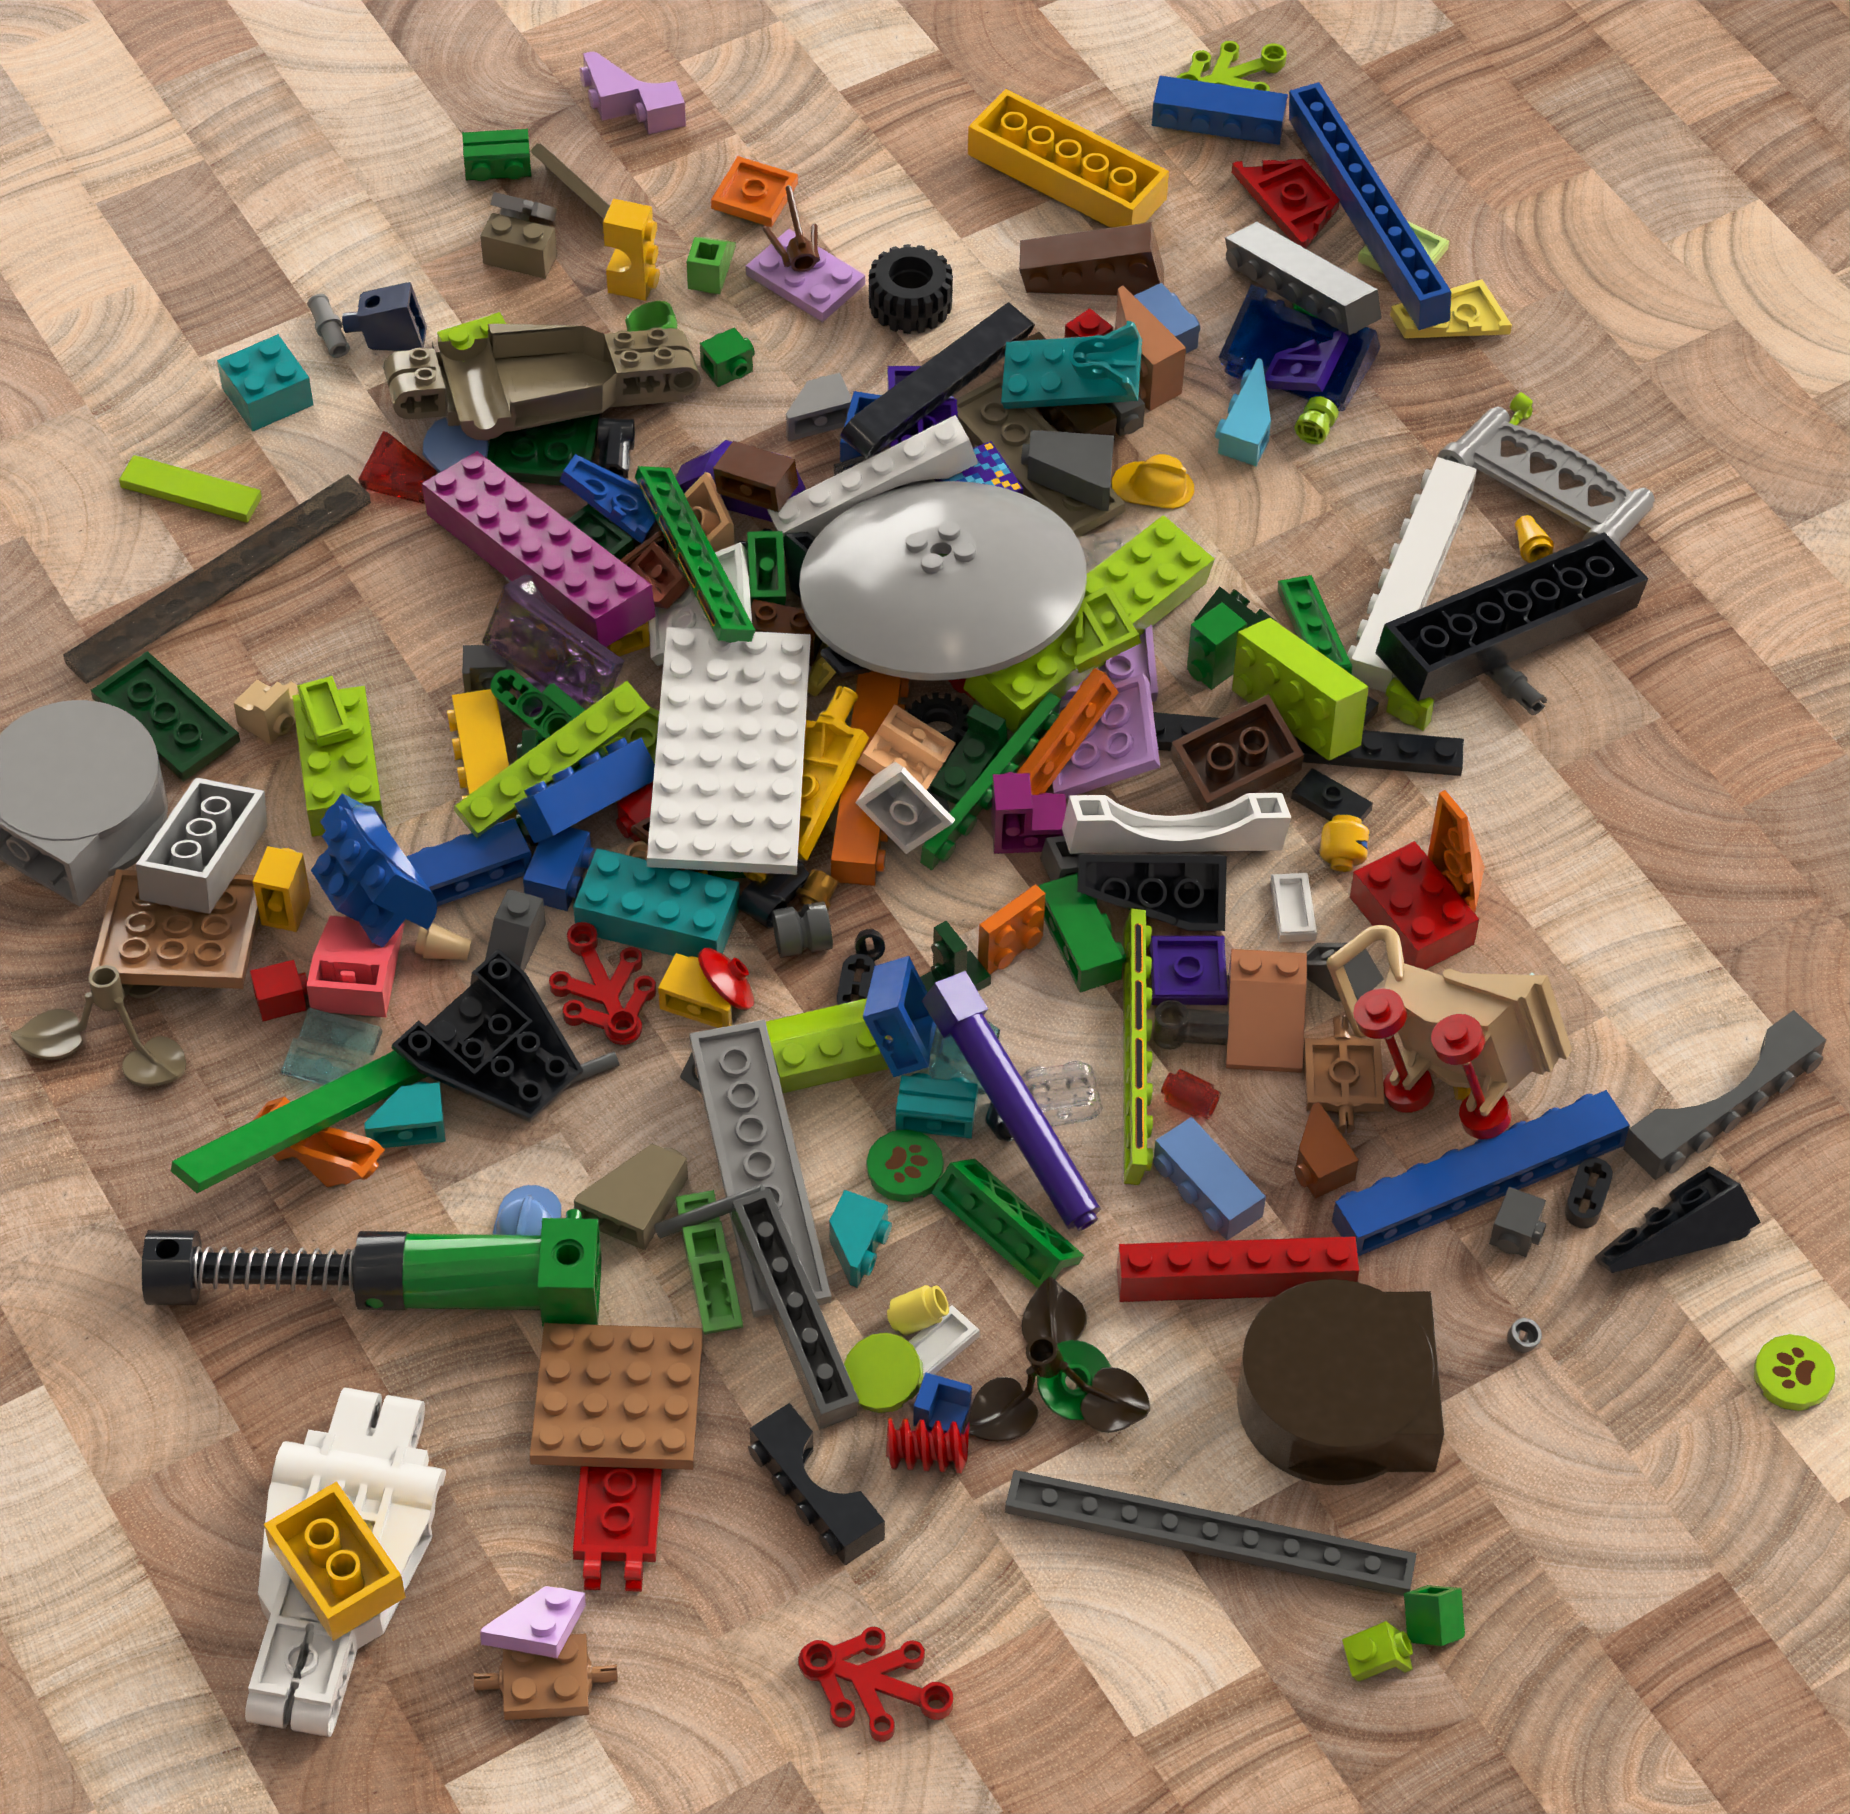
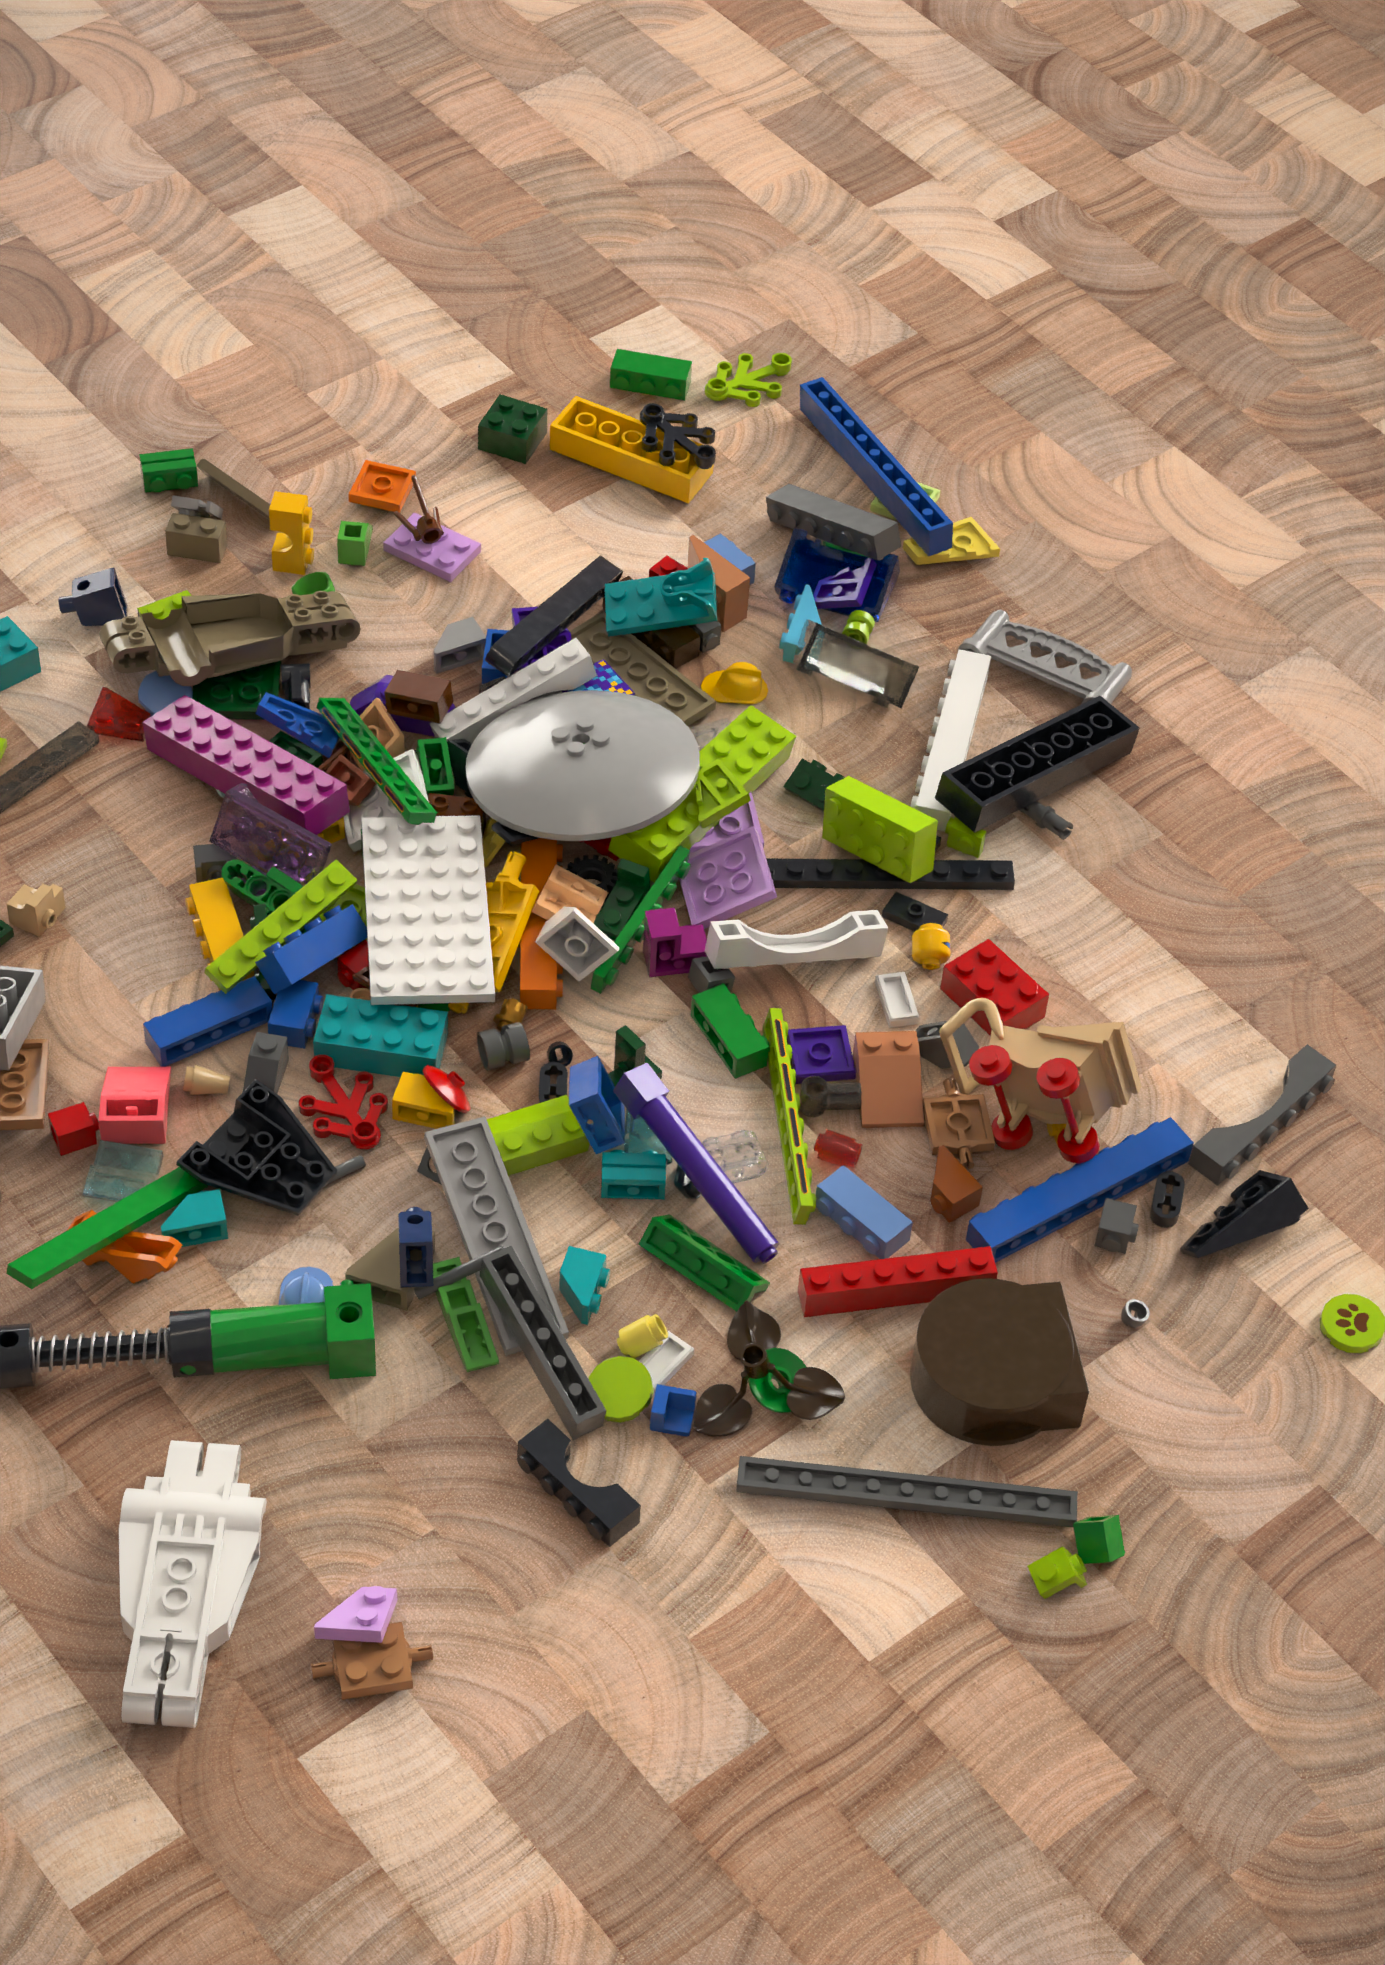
camera: 10 degrees left, 5 degrees down
(282, 888) = (66, 1046): yellow brick -> none
(325, 711) = (86, 903): lime tile -> none
(328, 325) = (46, 609): light grey pin -> none
(334, 1560) = (186, 1578): yellow brick -> none
(341, 766) = (100, 944): lime brick -> none
(369, 873) = (142, 1026): blue piece -> none
(617, 1396) = (401, 1428): medium nougat plate -> none
(617, 1521) = (414, 1520): red tile -> none
(620, 94) = (262, 419): lavender arch -> none
(660, 1160) = (415, 1233): none -> dark blue torso
(726, 357) = (377, 612): green brick -> none
(772, 894) = (476, 1019): black piece -> none
(869, 1678) = (644, 1635): red plant -> none
(904, 1165) = (613, 1224): green tile -> none
(910, 288) = (519, 551): black tyre -> none
(924, 125) = (512, 429): none -> dark green brick
(927, 1445) = (666, 1442): red piece -> none
(1012, 930) = (676, 1032): orange plate -> none
(1069, 731) = (700, 873): orange plate -> none
(1071, 464) = (670, 673): dark grey slope -> none
(1093, 261) = (662, 521): reddish brown wedge -> none
(1099, 124) = (655, 417): none -> black plant
(1107, 63) = (650, 374): none -> green brick
(1170, 887) = (800, 989): black wedge -> none
(1214, 645) = (805, 803): green brick -> none
(1219, 110) = (746, 403): blue brick -> none
(1237, 754) = (836, 883): reddish brown brick -> none
(1290, 196) = (810, 463): red wing -> none
(1302, 467) = (854, 664): none -> clear smoke windscreen
(1312, 619) = (874, 773): green tile -> none
(1456, 850) = (1023, 938): orange wedge -> none
(1522, 407) = (1017, 610): lime hand -> none
(1532, 539) = (1041, 707): yellow cone -> none

